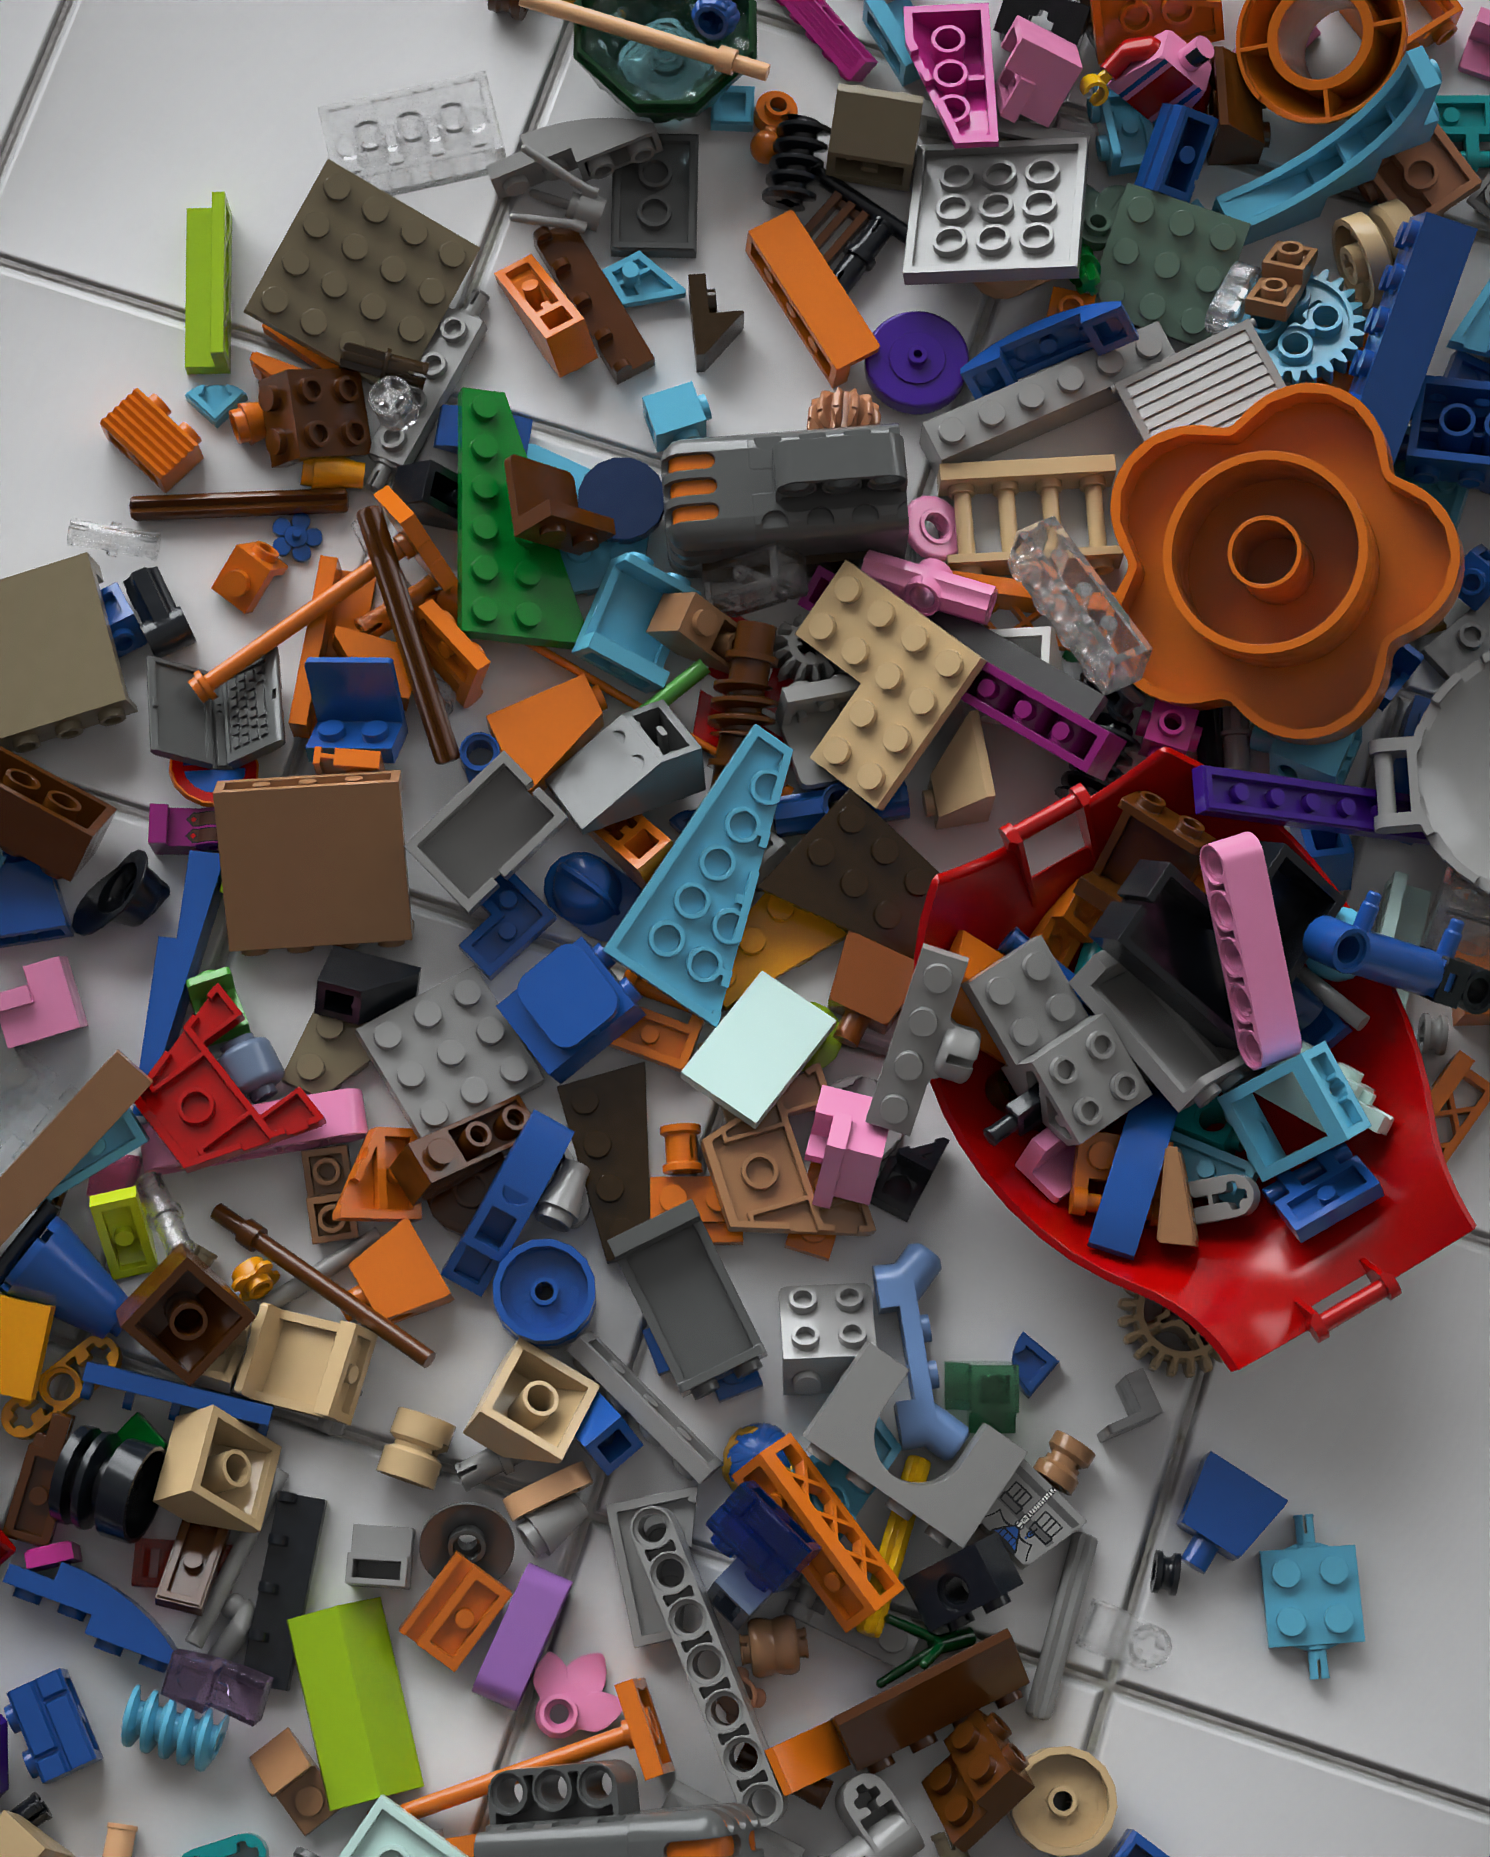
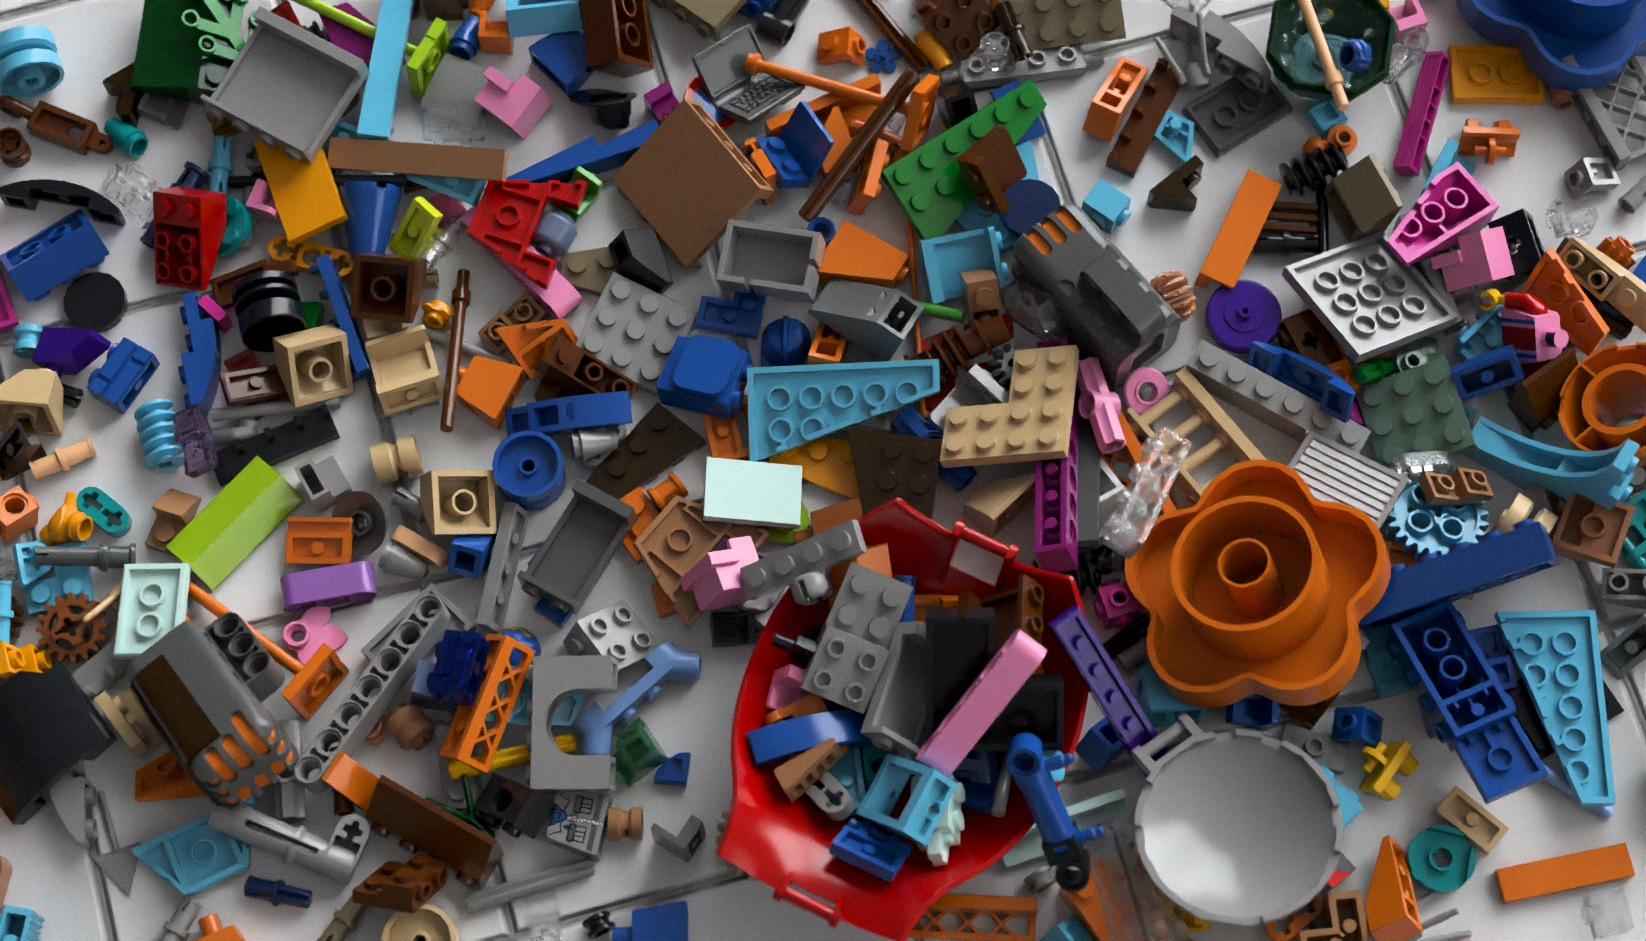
camera: 60 degrees right, 5 degrees down
(986, 301) = (1308, 329): none -> reddish brown brick

